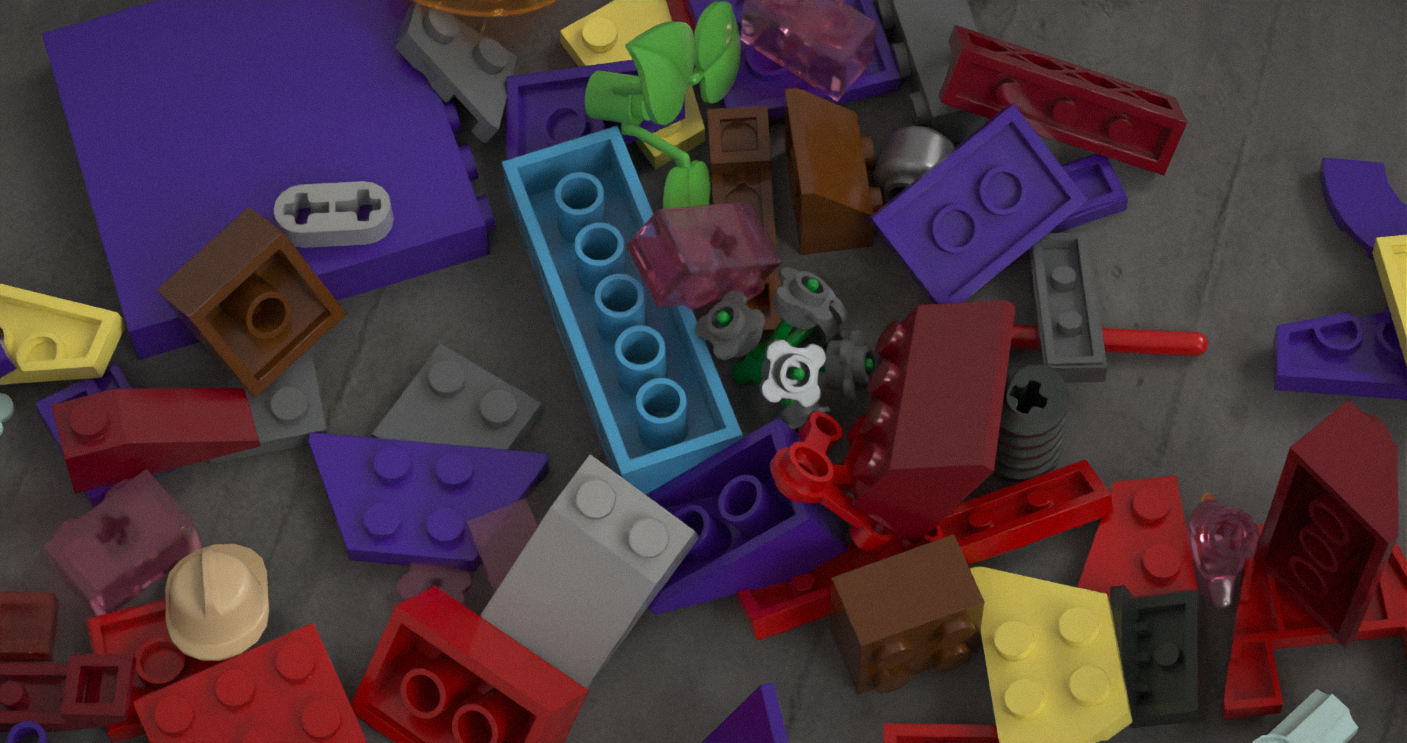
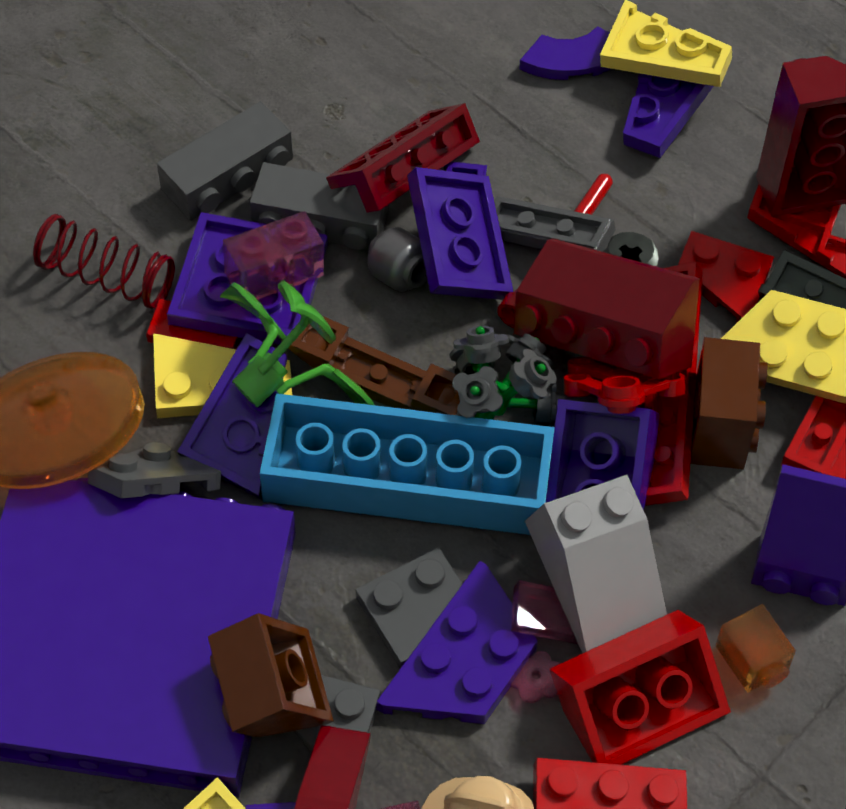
camera: 65 degrees left, 5 degrees down
(334, 214) = (221, 592): light grey beam -> none
(703, 254) = (416, 385): clear pink brick -> none
(828, 174) = (377, 307): reddish brown slope -> none
(1220, 544) = (754, 225): clear pink animal -> none

